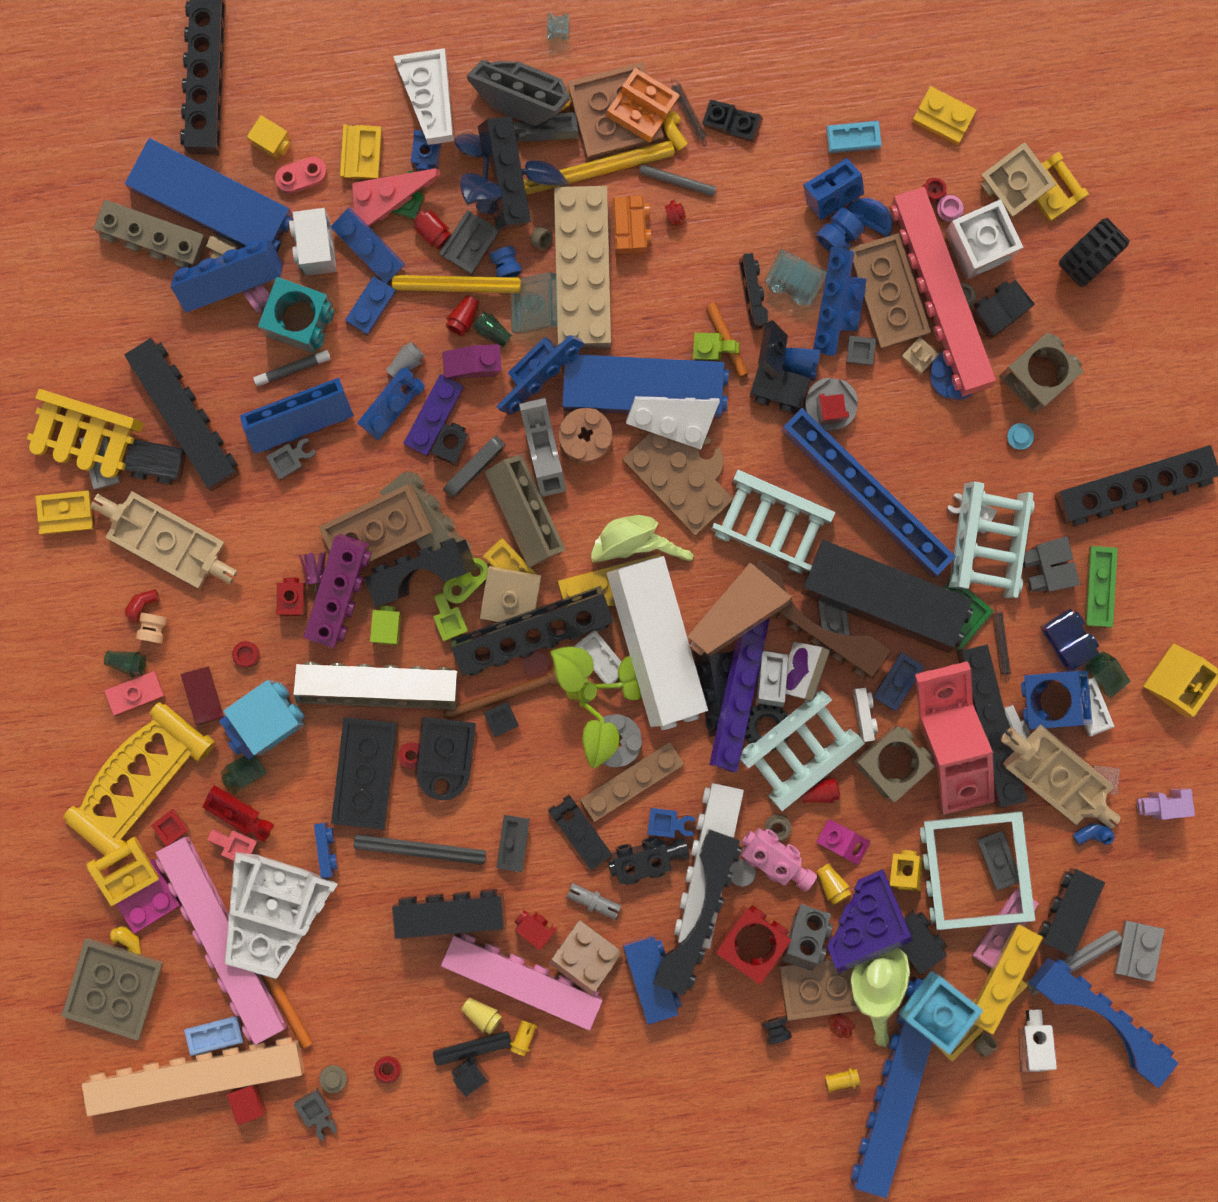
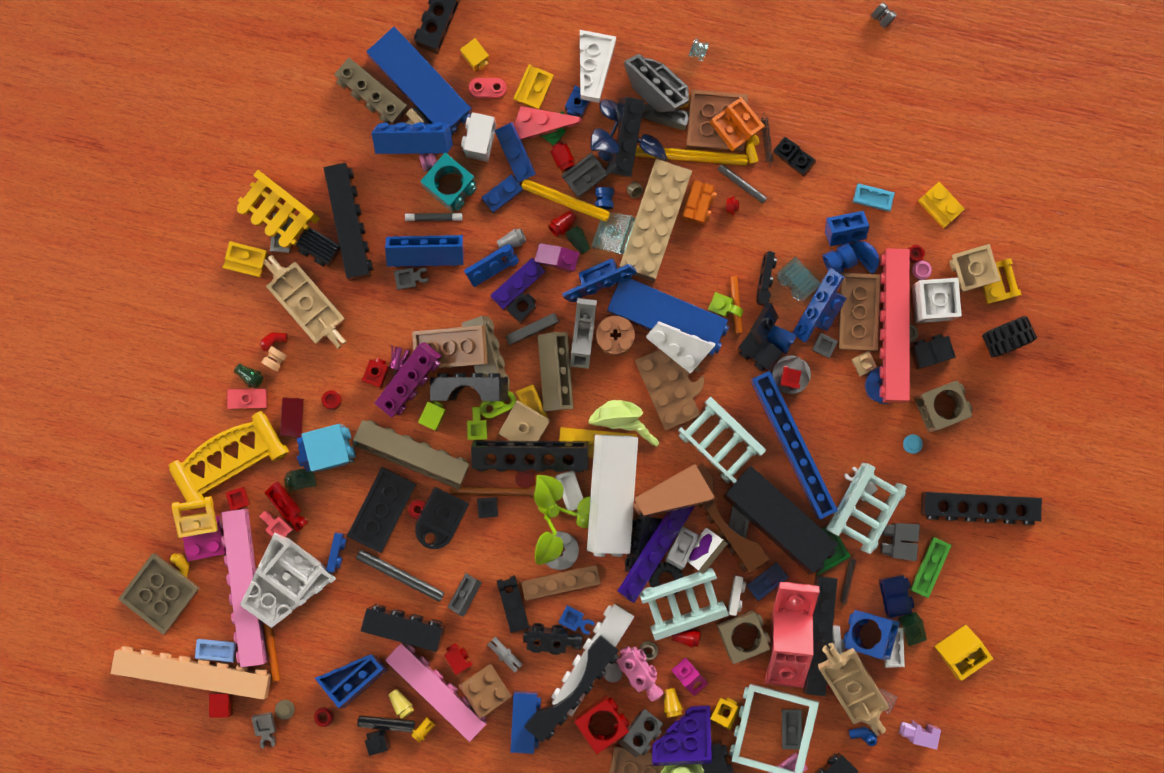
camera: 25 degrees right, 0 degrees up
(406, 1008) = (351, 680): none -> blue wedge

